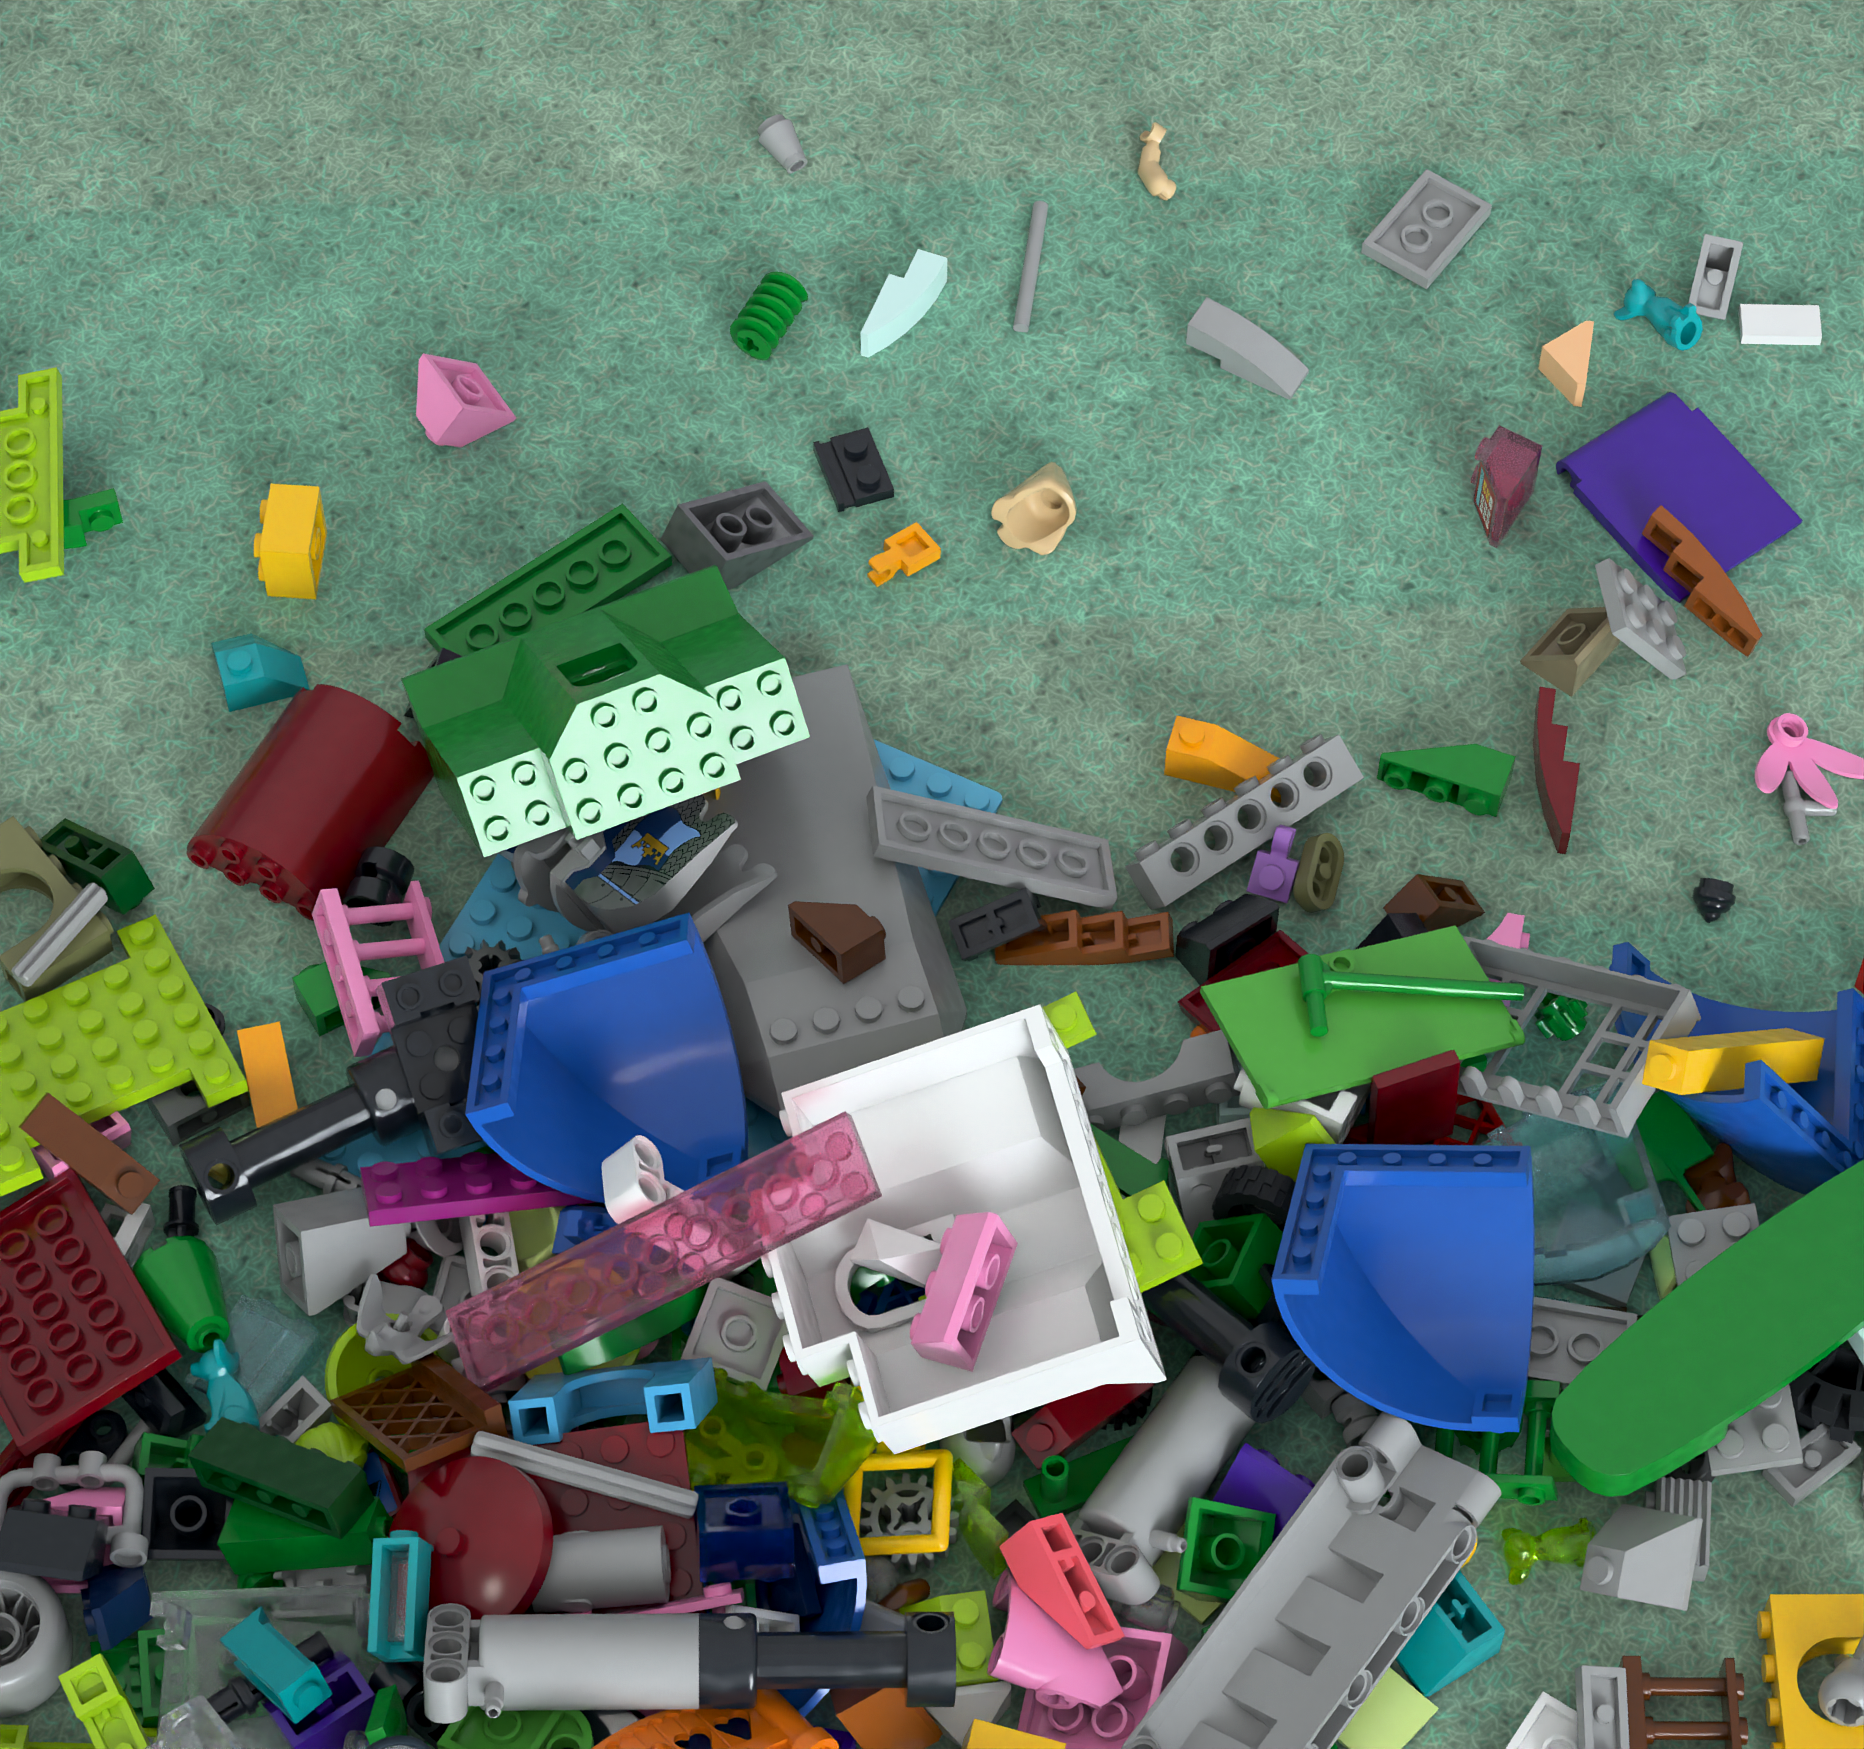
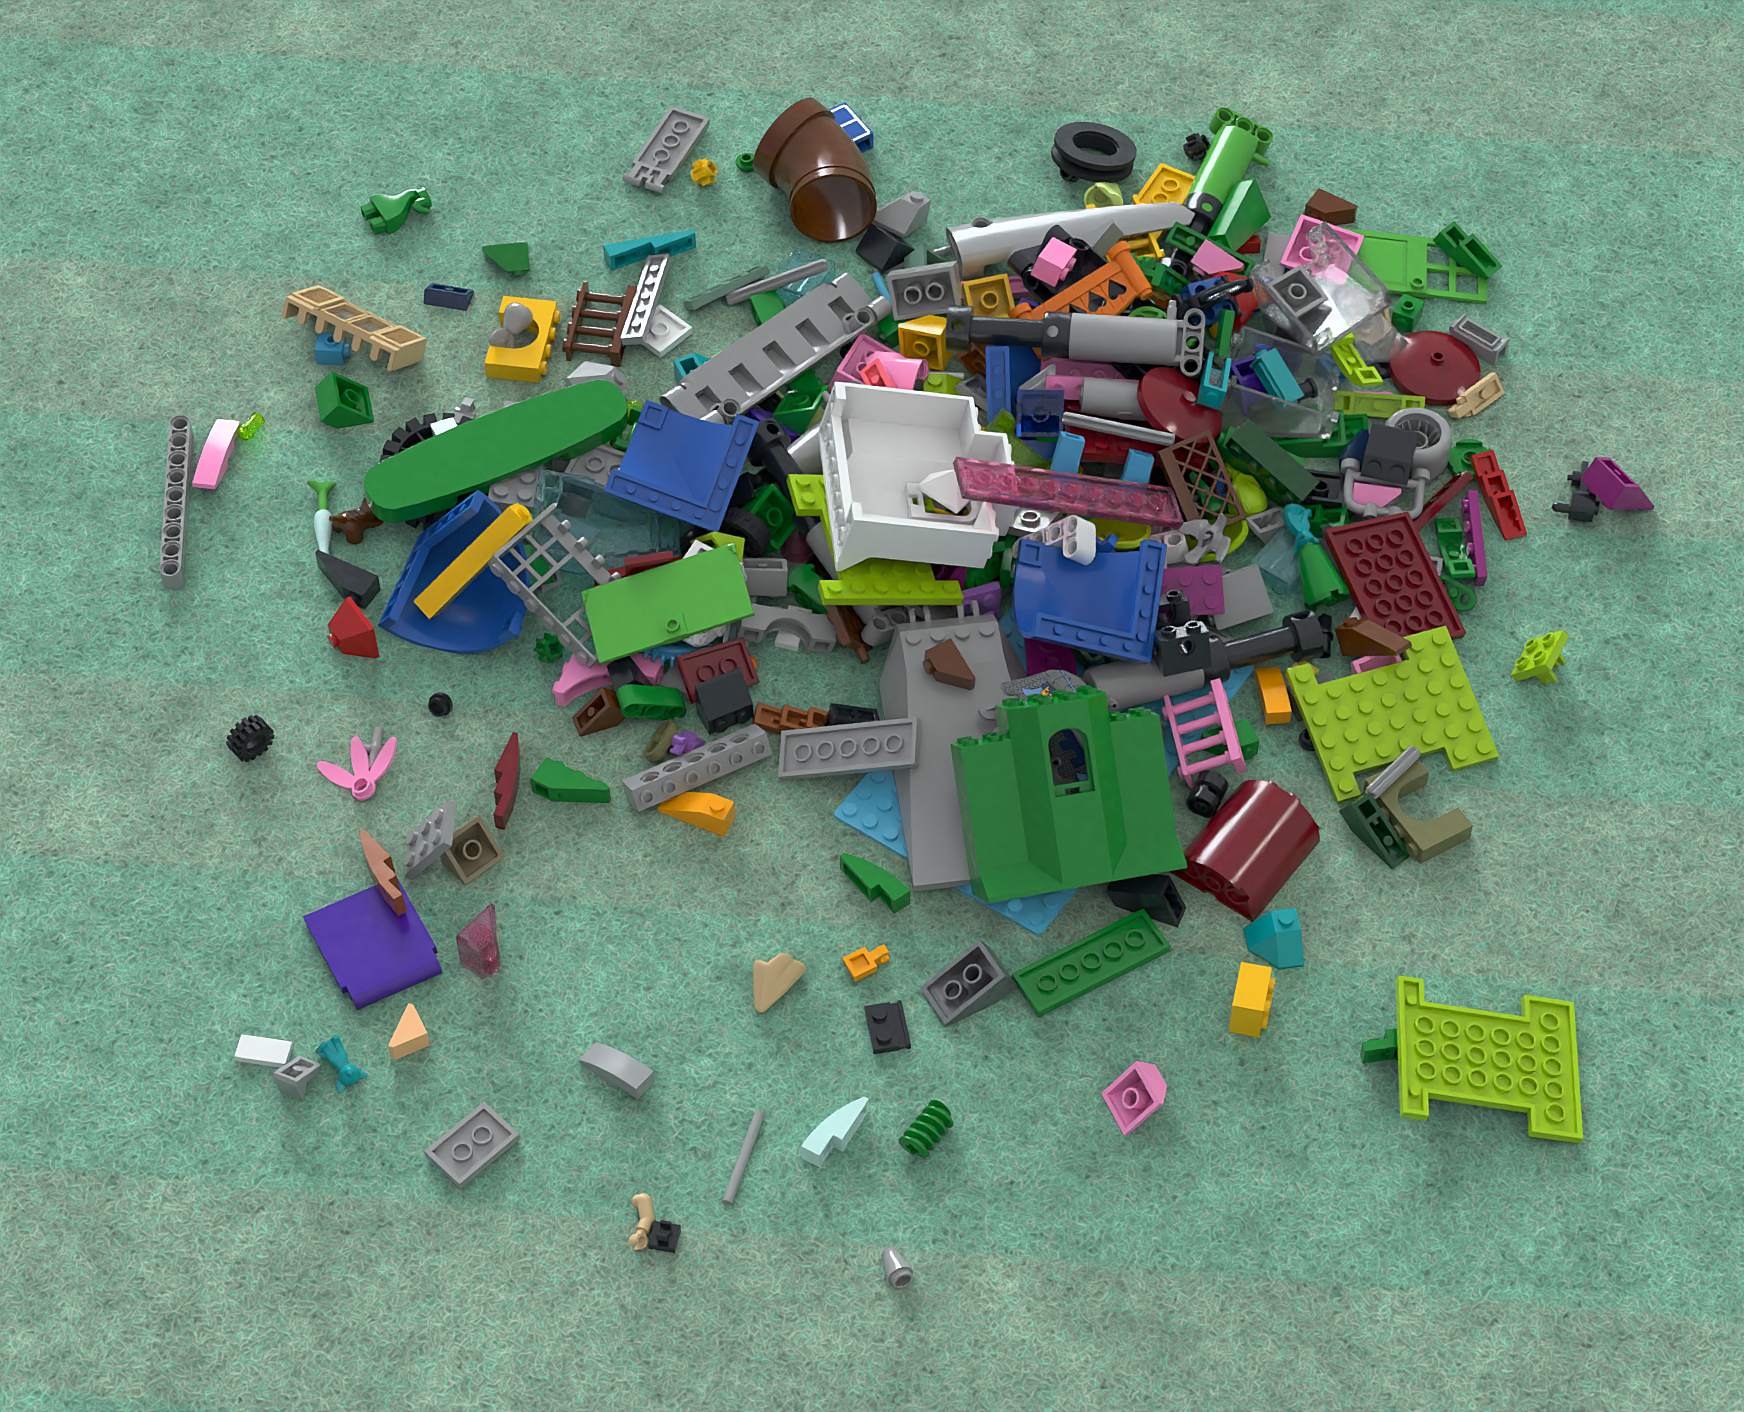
camera: 170 degrees left, 5 degrees down
(911, 675) = (875, 882): none -> green slope
(963, 1290) = (916, 452): bright pink slope -> none
(1118, 150) = (664, 1236): none -> black tile
(1319, 981) = (687, 612): green bar -> none
(1353, 914) = (650, 702): none -> green beam

